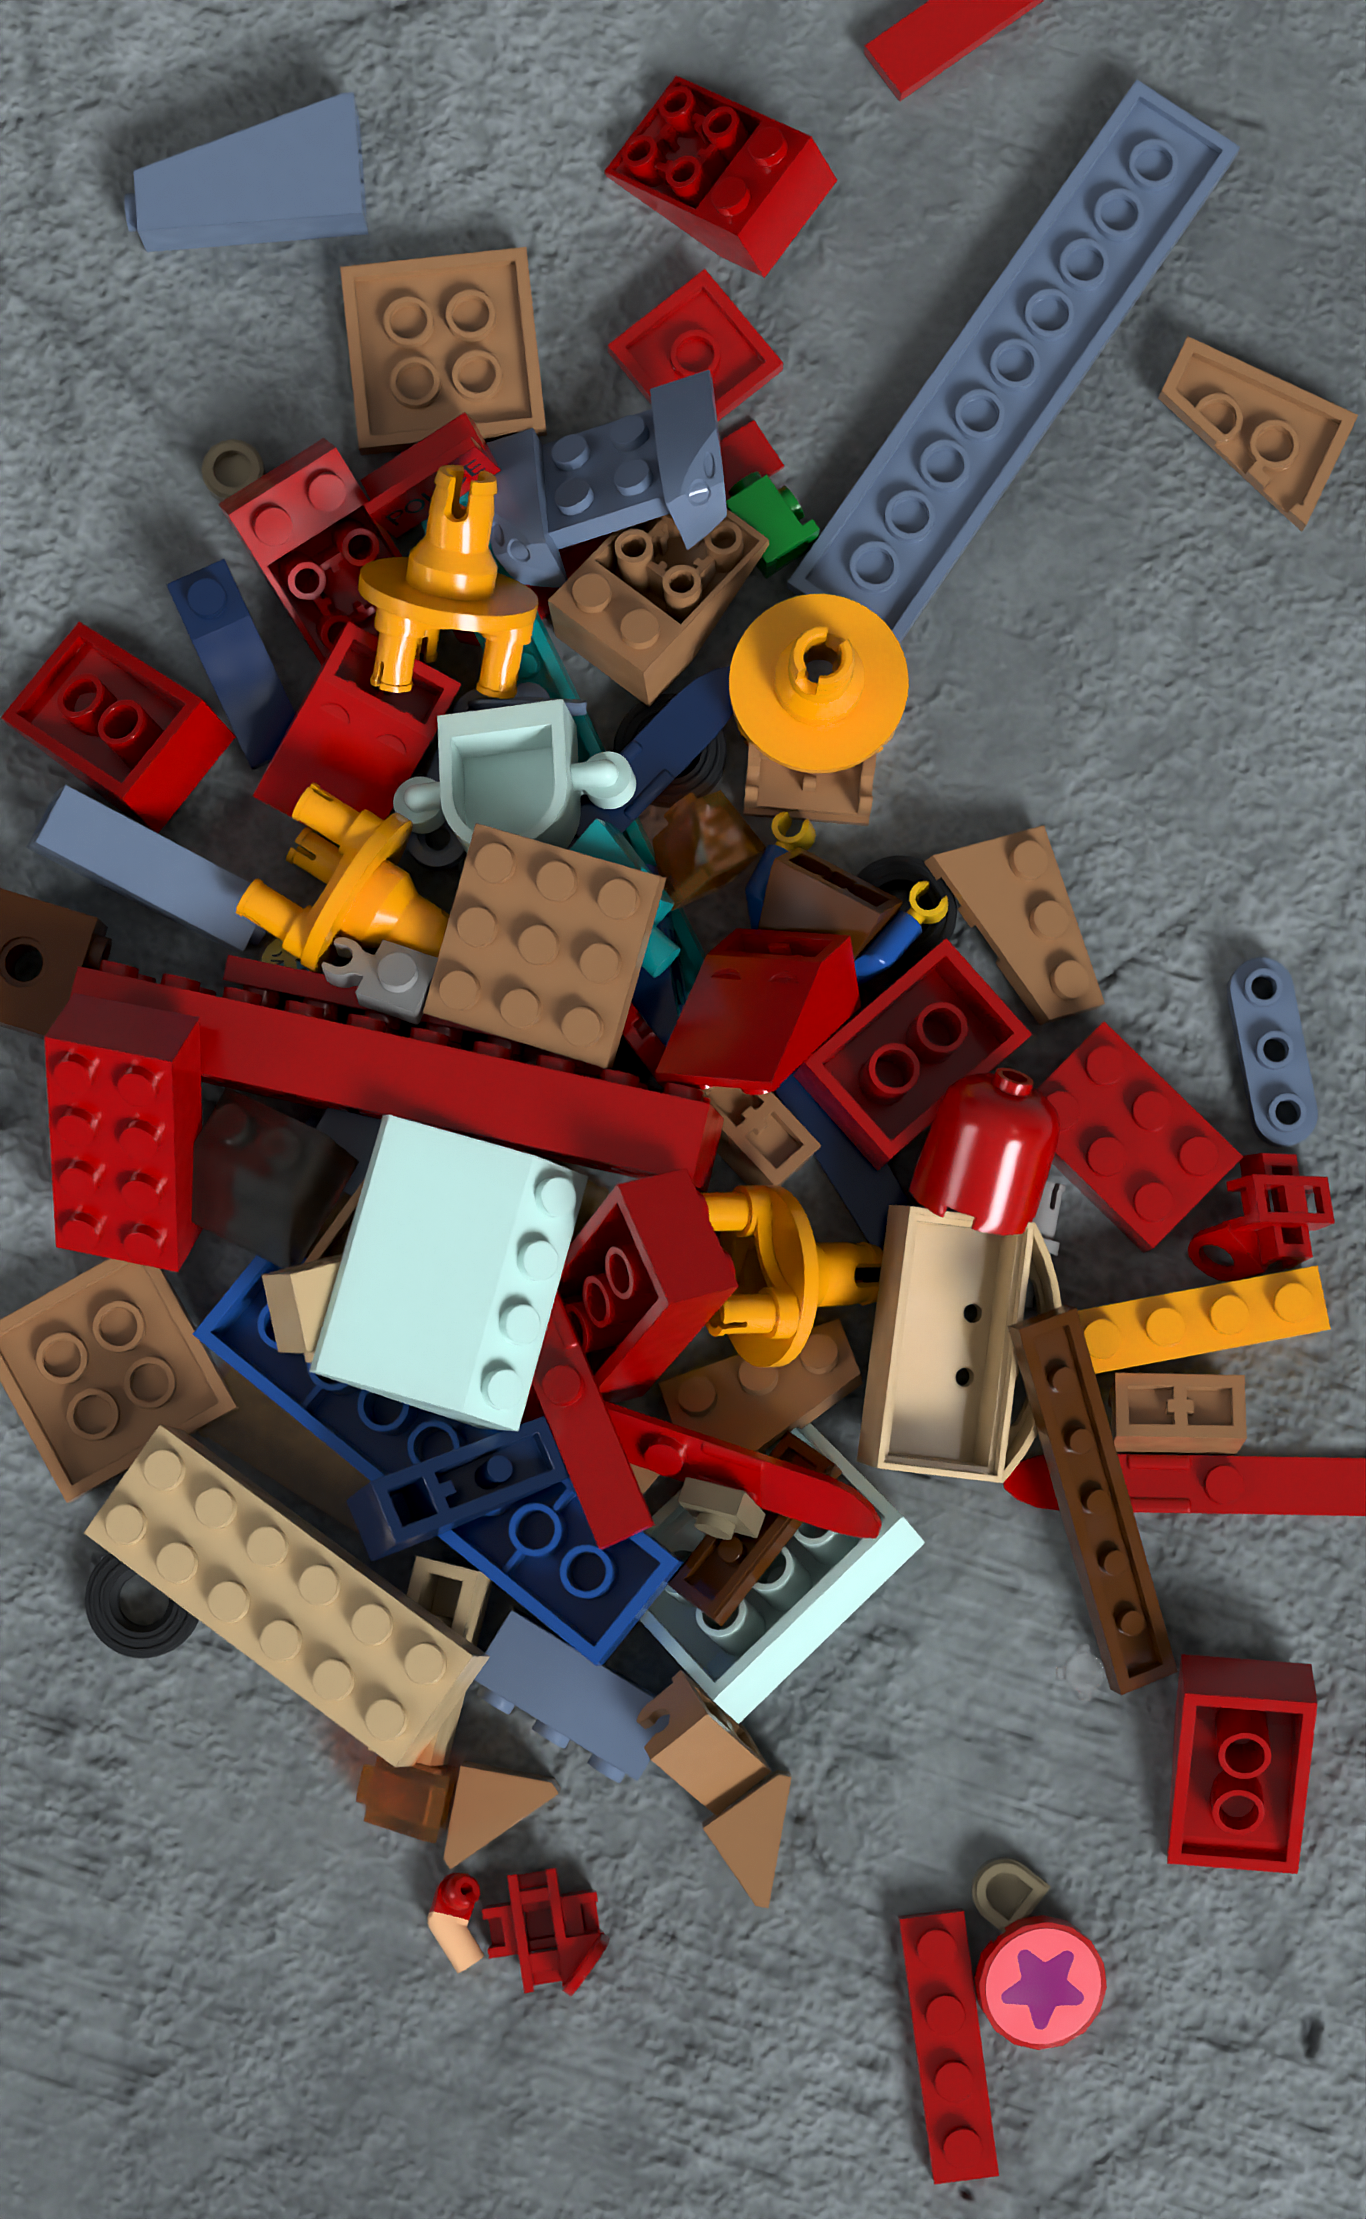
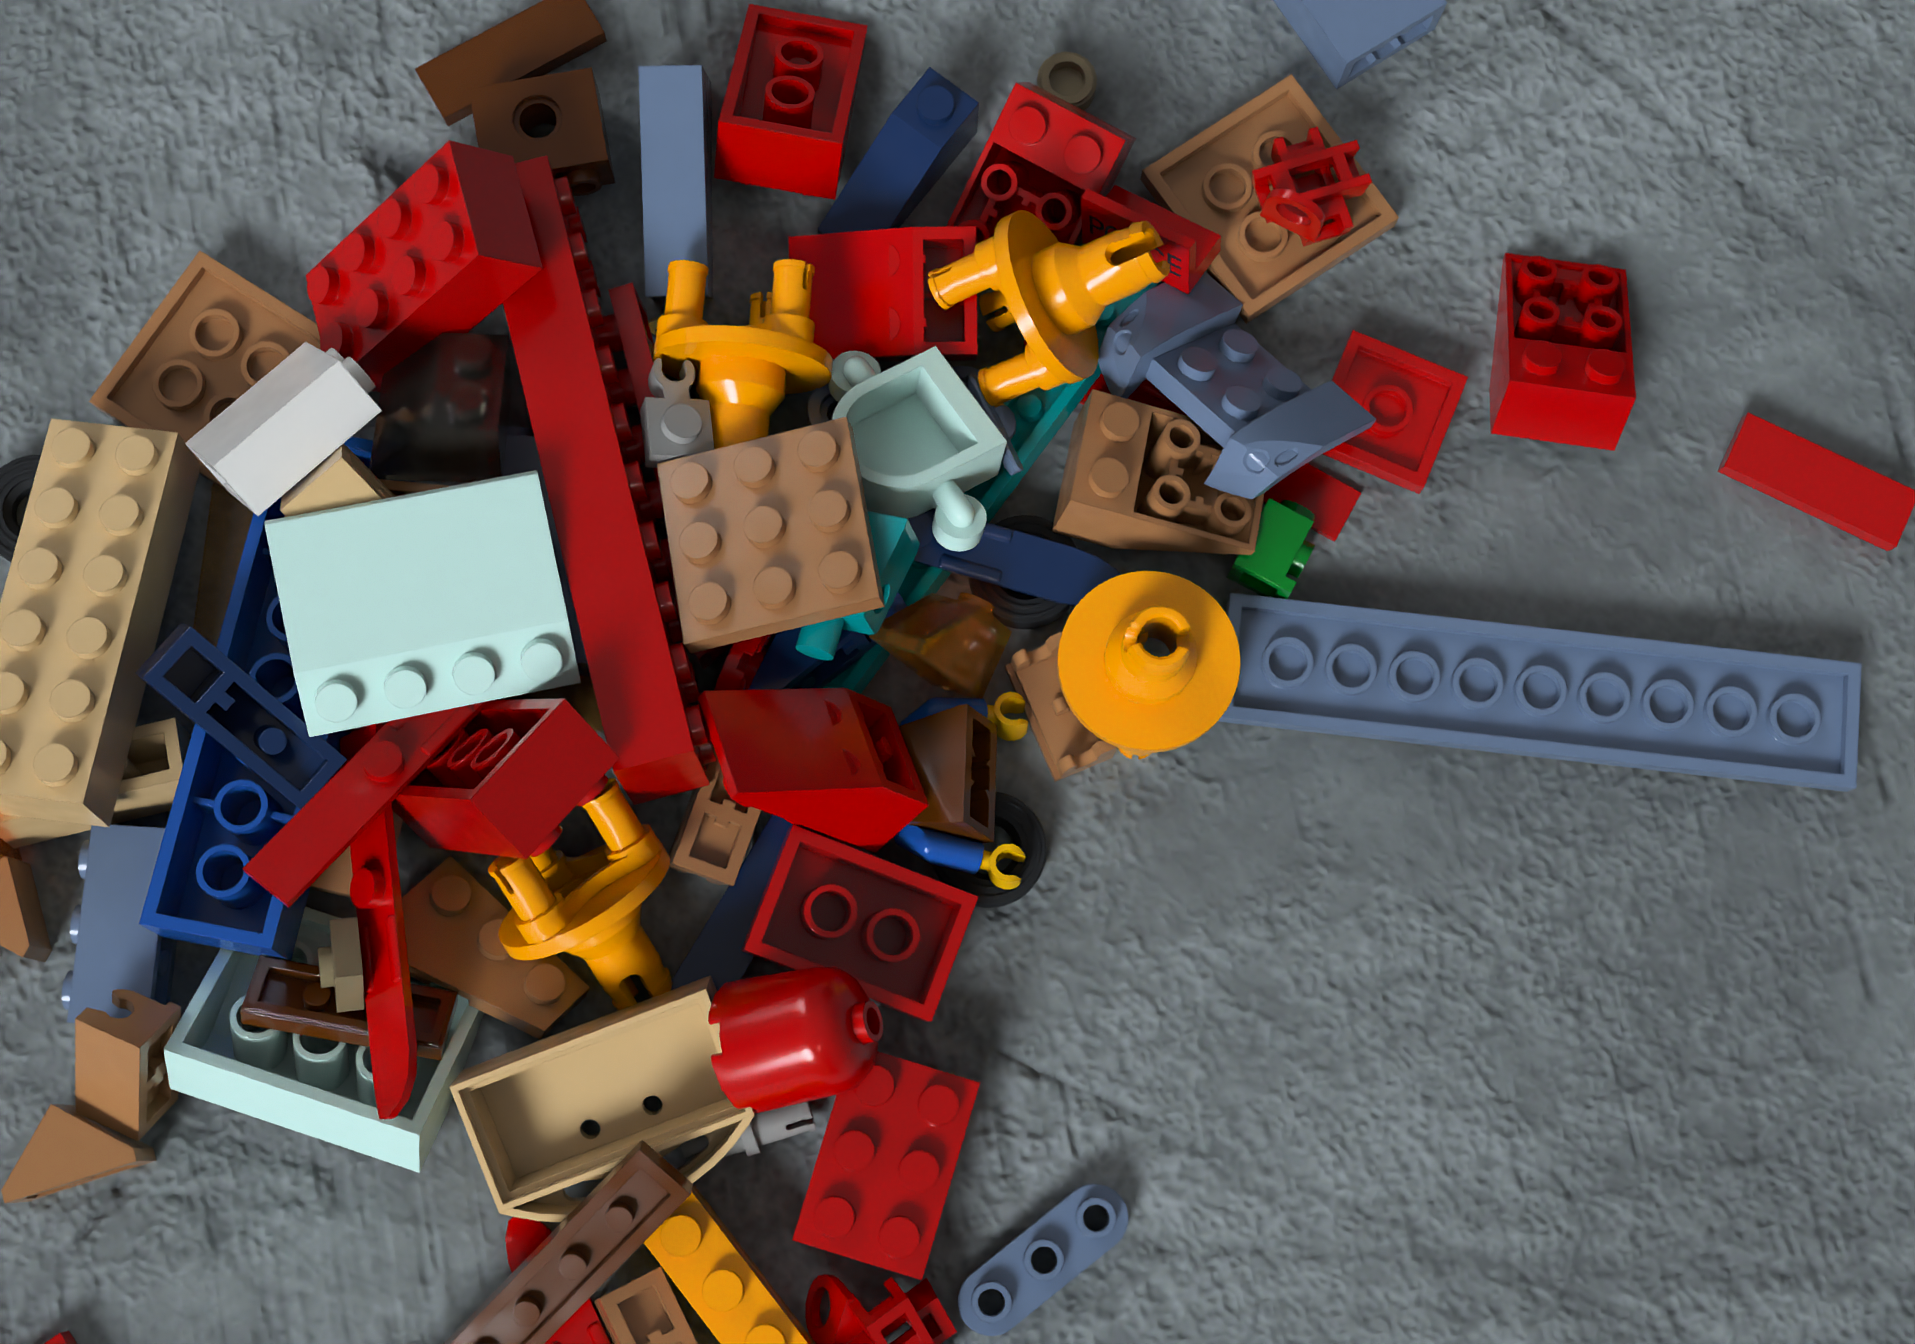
camera: 55 degrees right, 5 degrees down
(216, 1319) = (286, 425): none -> white brick
(469, 314) = (1309, 201): none -> red piece
(1025, 915) = (1047, 960): medium nougat wing -> none
(1260, 425) = (1613, 941): medium nougat wing -> none

